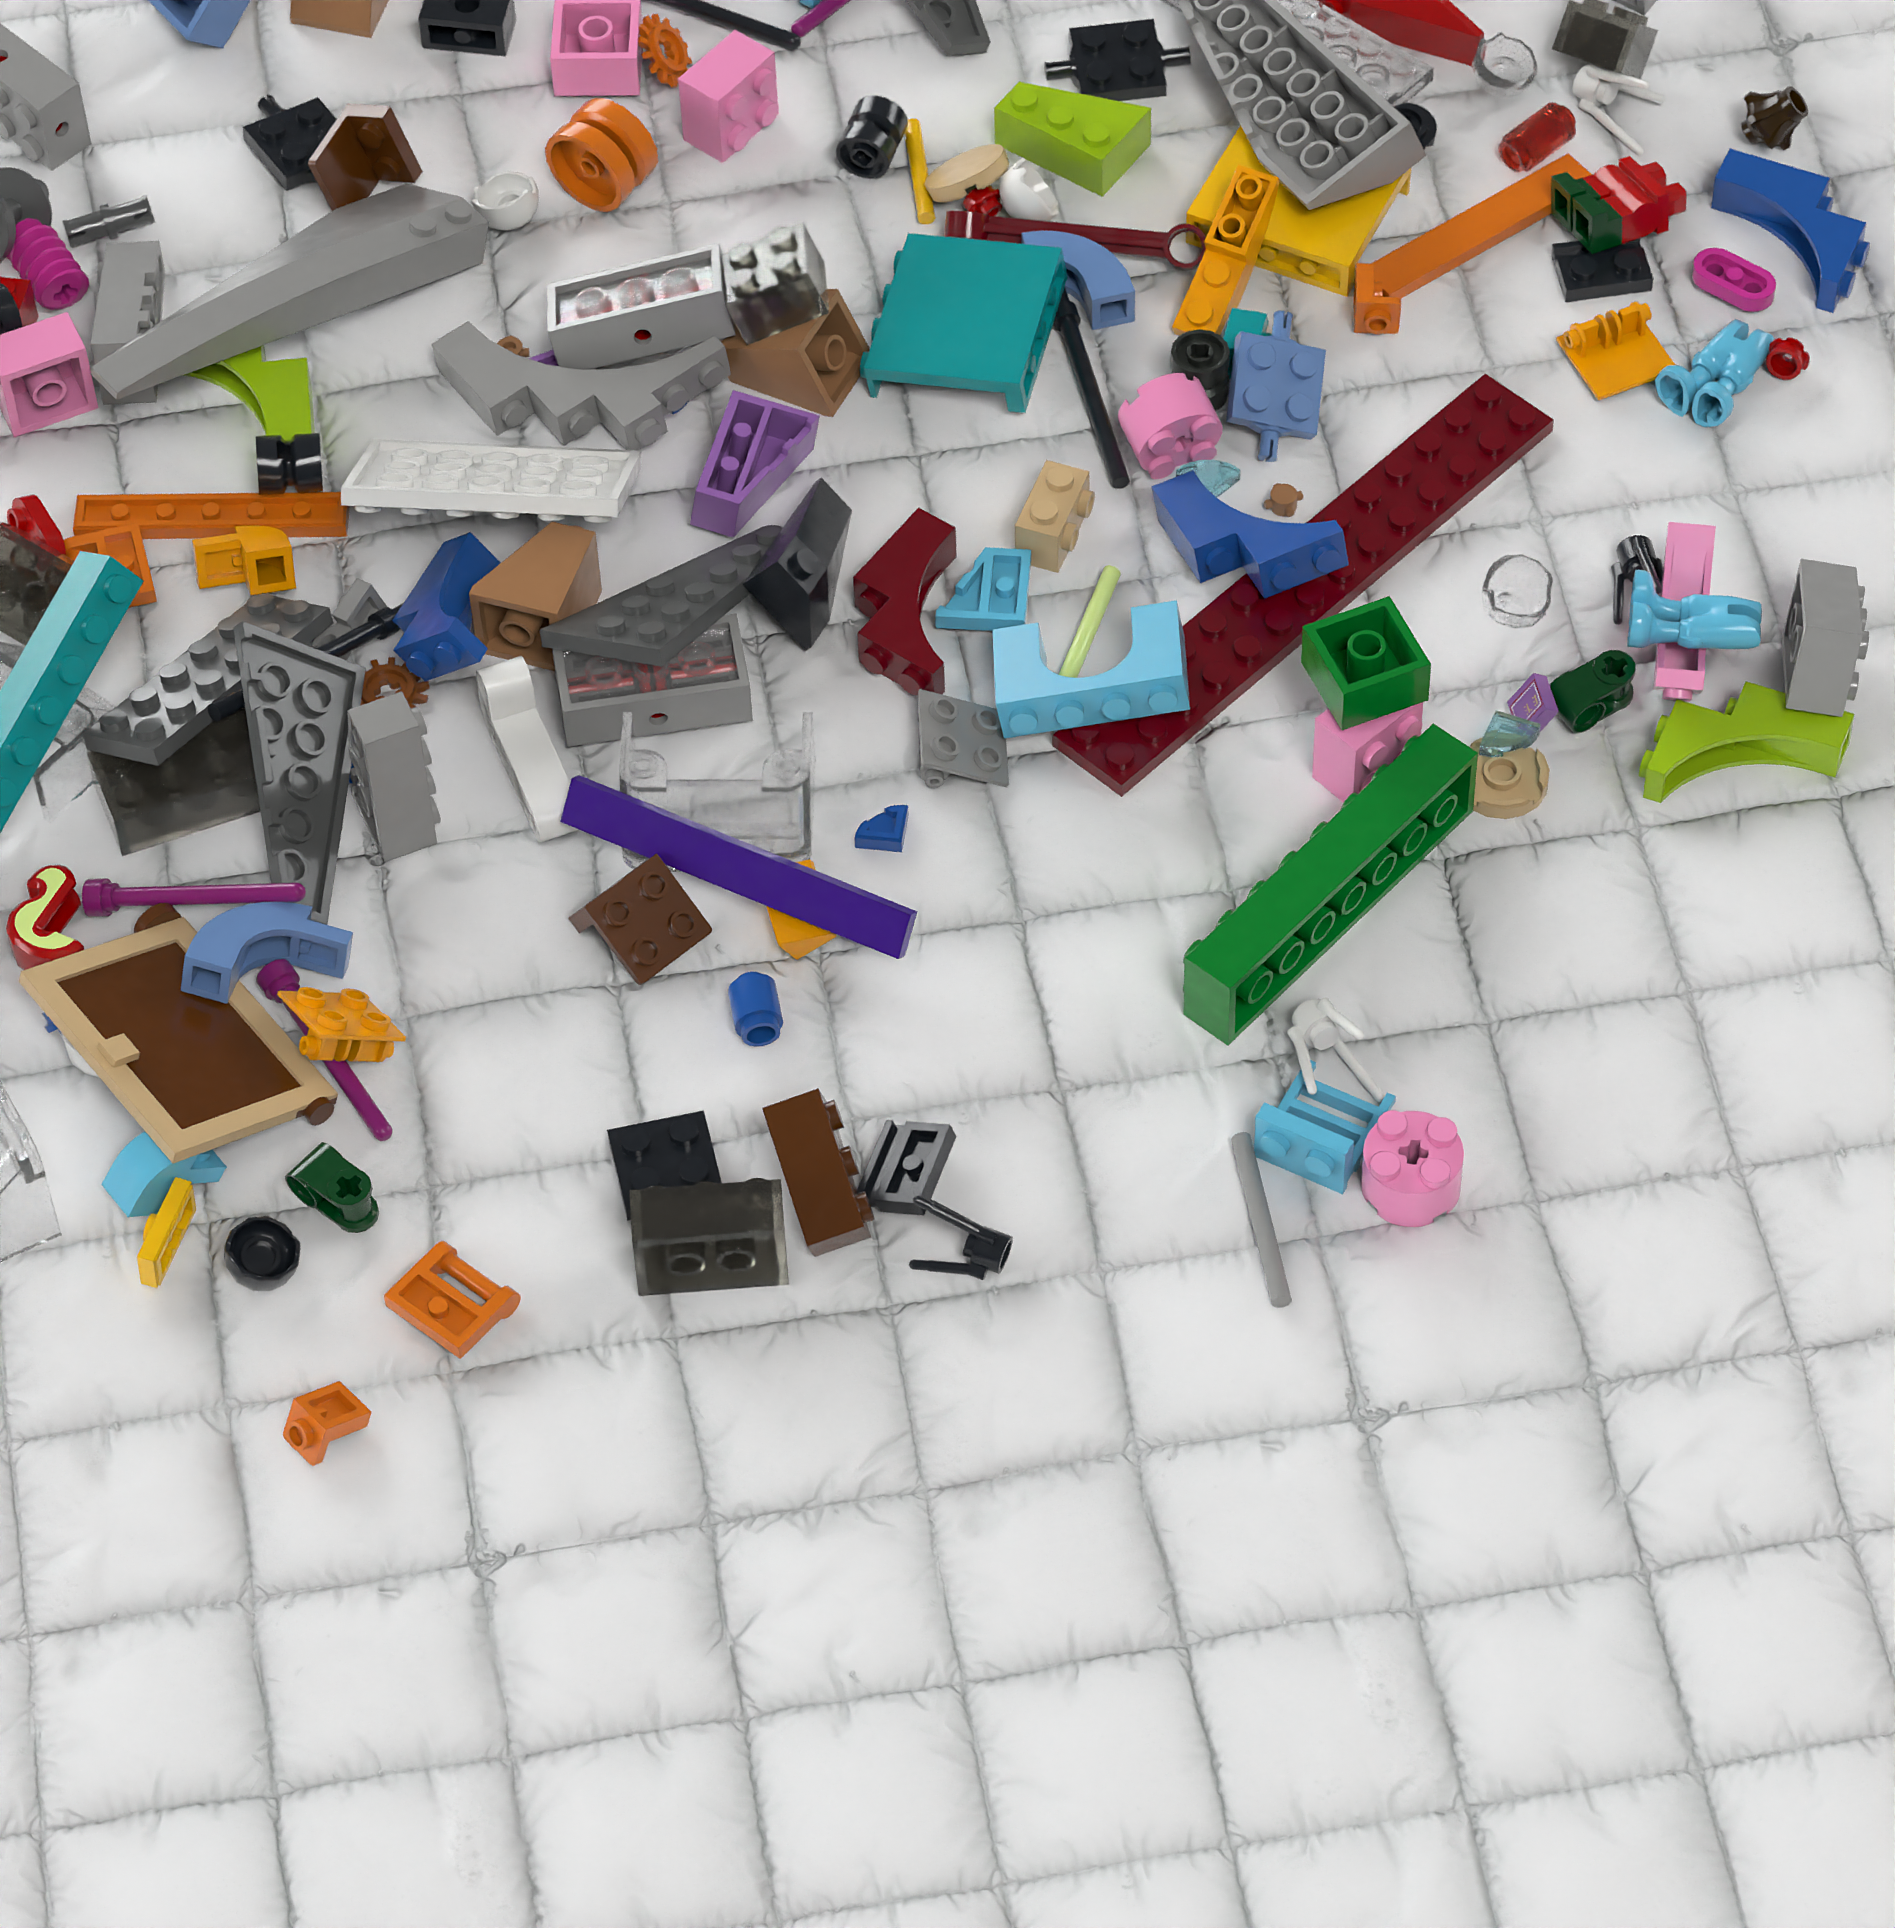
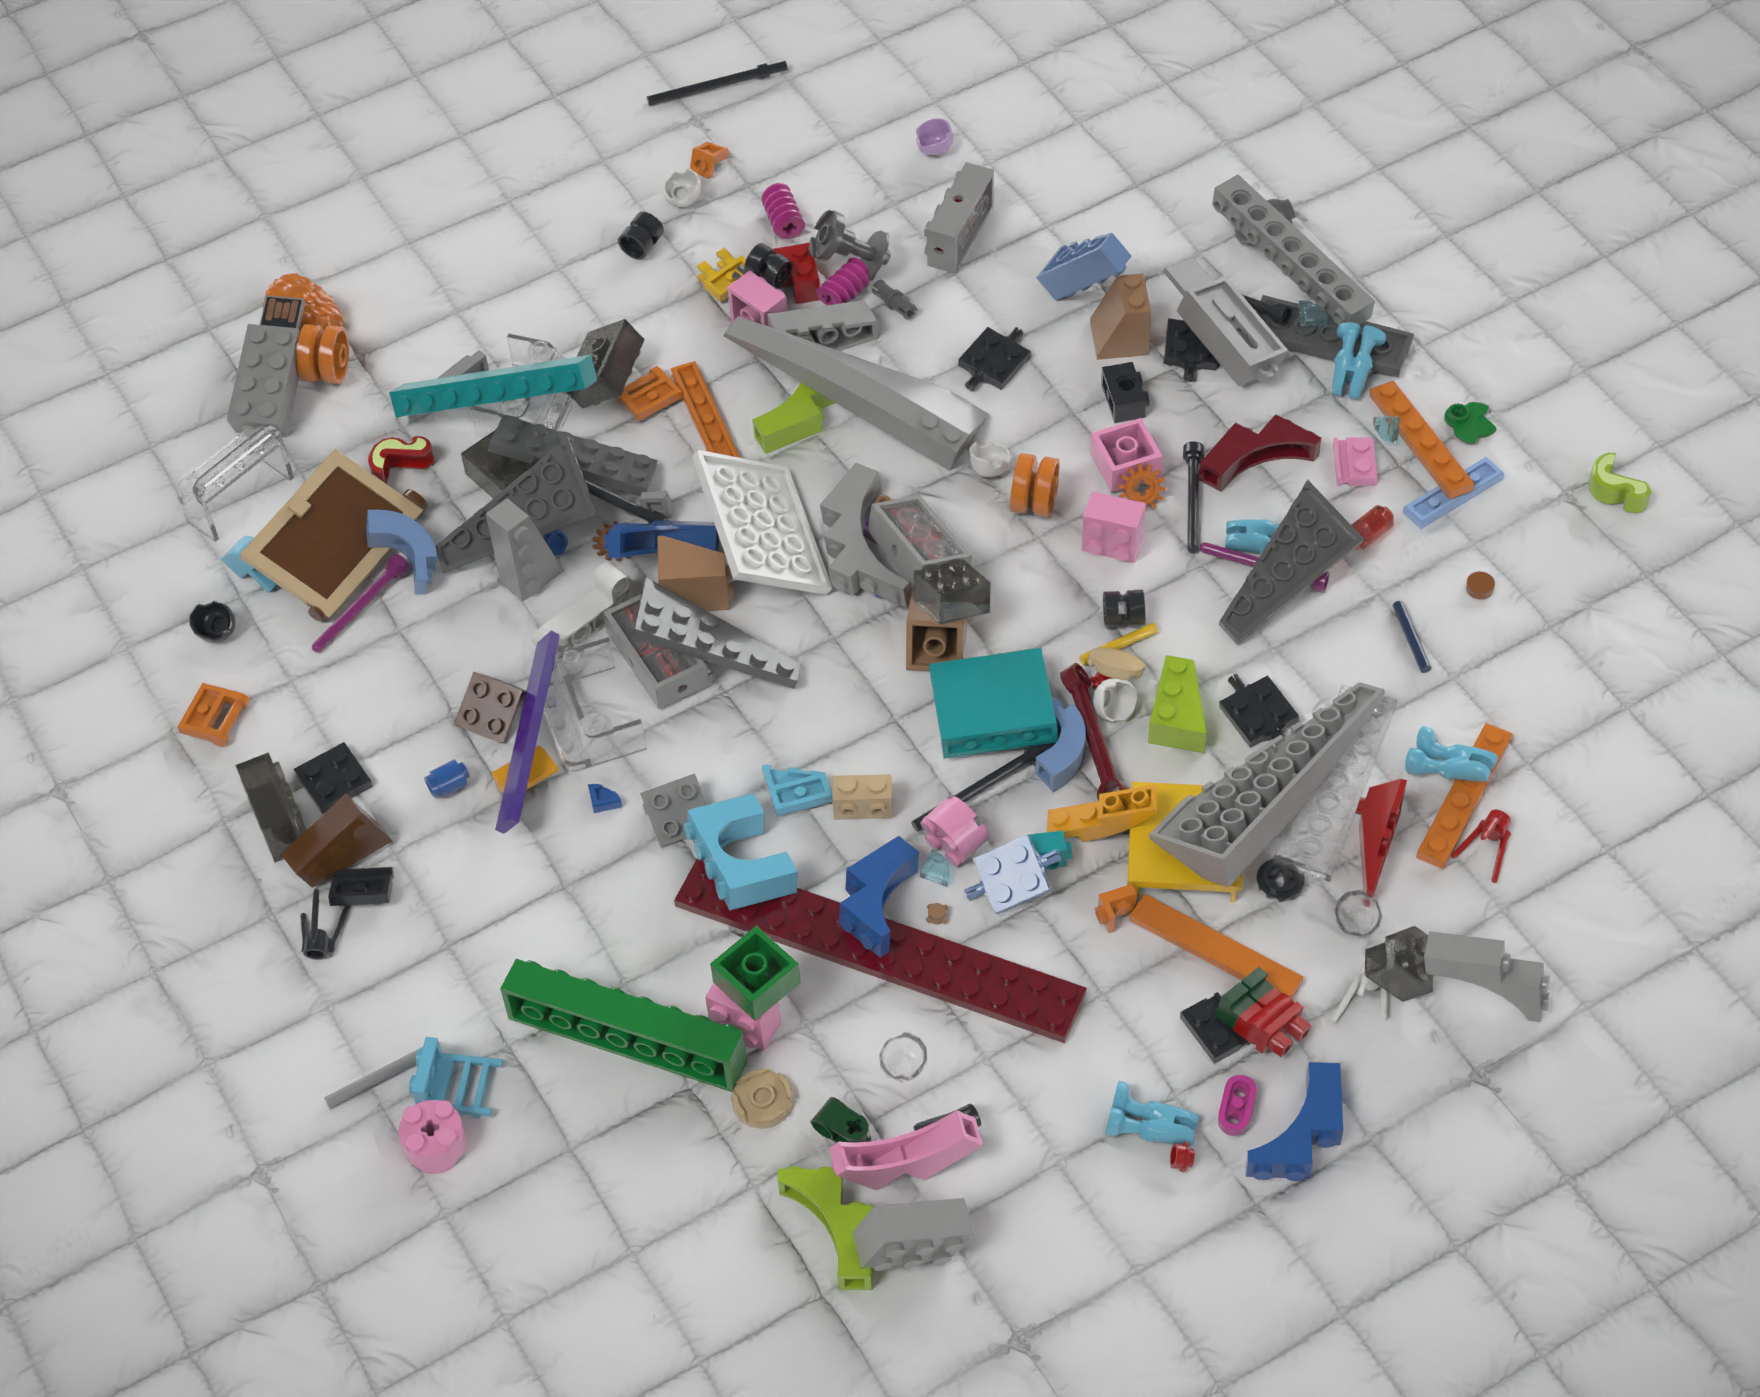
camera: 70 degrees right, 0 degrees up
(33, 518) = (662, 349): red plate -> none
(103, 897) = (426, 473): magenta piece -> none
(165, 1232) = (217, 579): yellow plate -> none
(251, 555) = (669, 444): light orange brick -> none
(289, 463) = (742, 434): black wheel -> none
(322, 1418) = (121, 687): orange bracket -> none
(334, 1189) = (268, 638): dark green piece -> none
(342, 1025) = (370, 597): light orange hinge -> none
(361, 151) = (975, 379): reddish brown bracket -> none
(750, 460) = (835, 635): medium lavender wedge -> none
(803, 565) = (770, 690): black wedge -> none
(893, 594) = (774, 742): dark red arch -> none
(1090, 622) = (783, 846): yellowish green bar -> none
(1205, 357) = (1007, 825): pearl dark grey wheel -> none
(1318, 1026) = (521, 1057): white plant -> none
(1508, 734) = (784, 1086): clear light blue tile -> none
(1534, 701) = (816, 1096): medium lavender tile -> none
(1537, 137) = (1307, 955): clear red head -> none
(1615, 350) = (1141, 1057): light orange hinge -> none
(1692, 622) = (883, 1159): medium azure piece -> none
(1773, 117) = (1390, 1083): dark brown rock -> none

